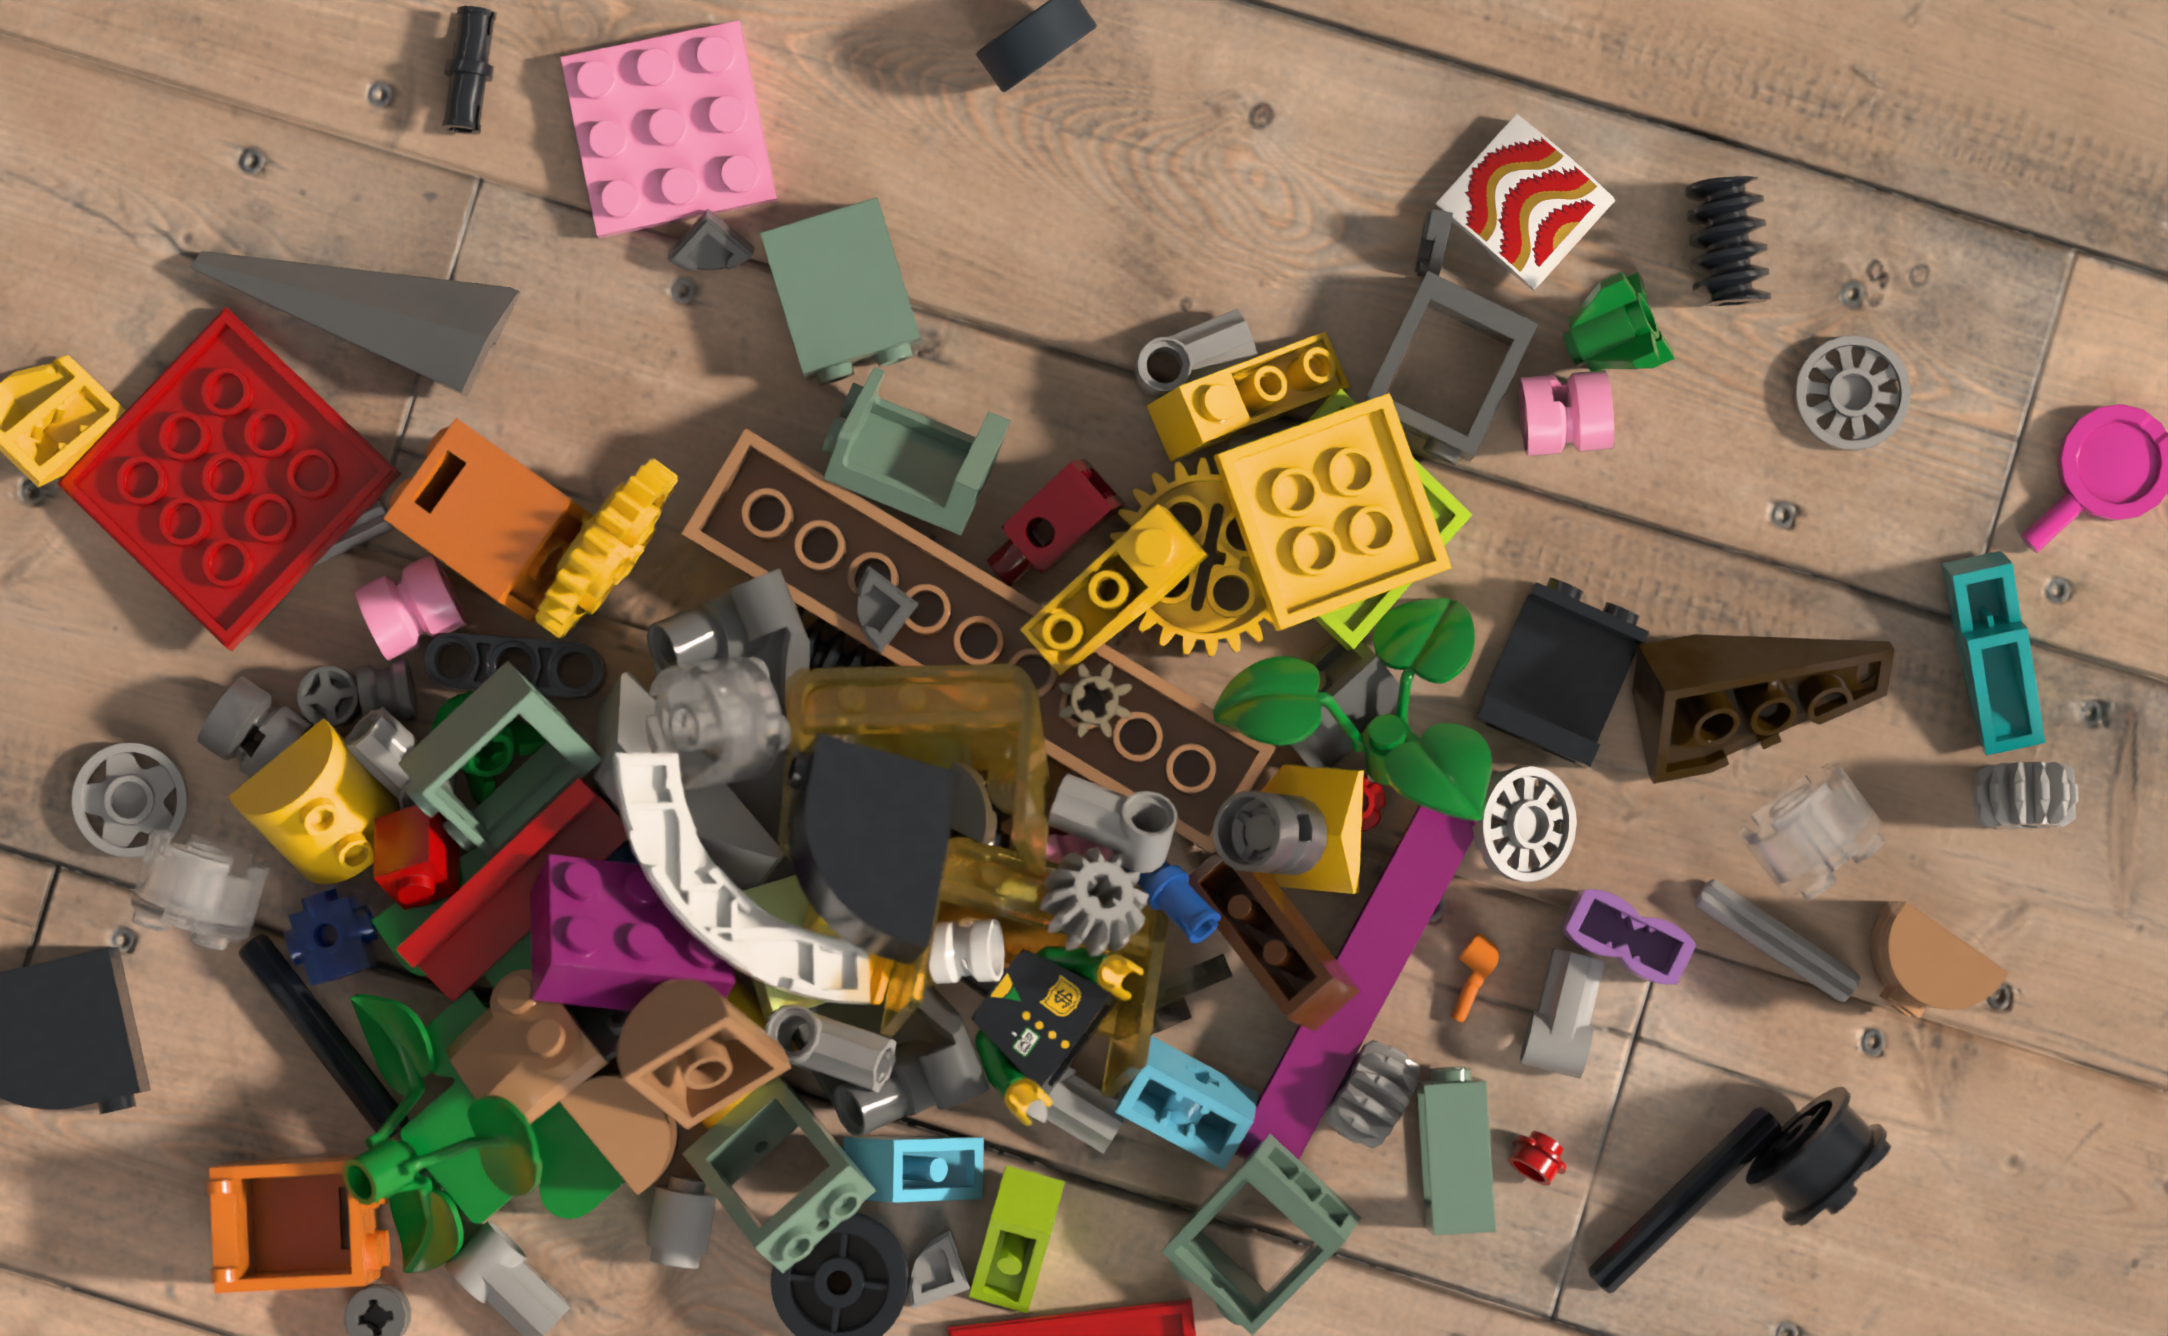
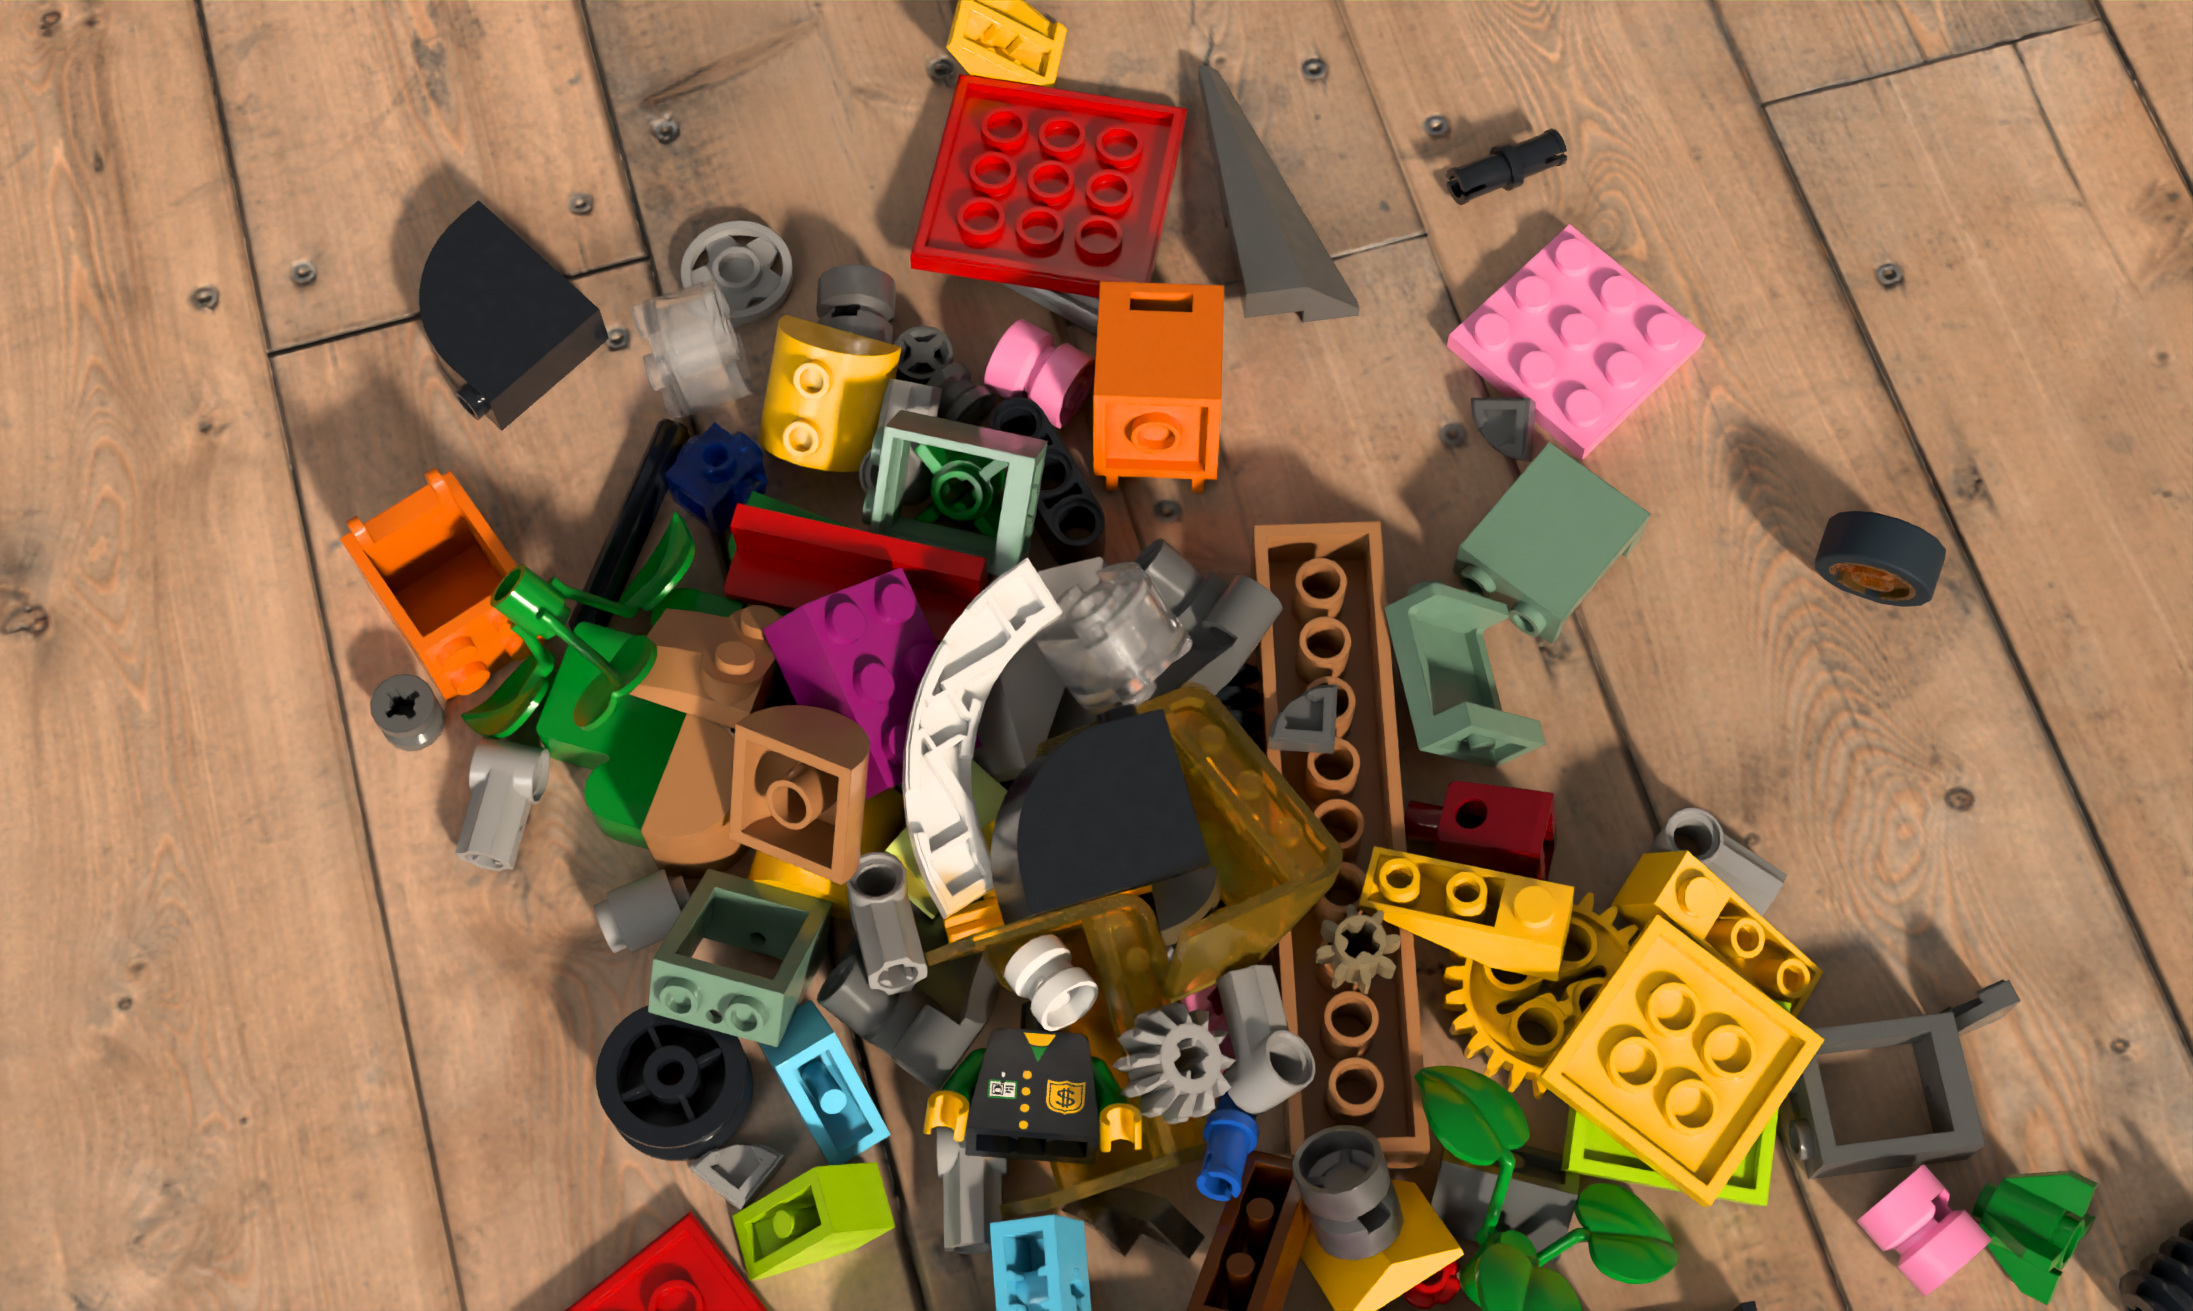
camera: 60 degrees right, 20 degrees down
(415, 857) = (828, 482): red brick -> none
(606, 548) = (1198, 470): yellow gear -> none
(1525, 202) = (2076, 1072): slope -> none

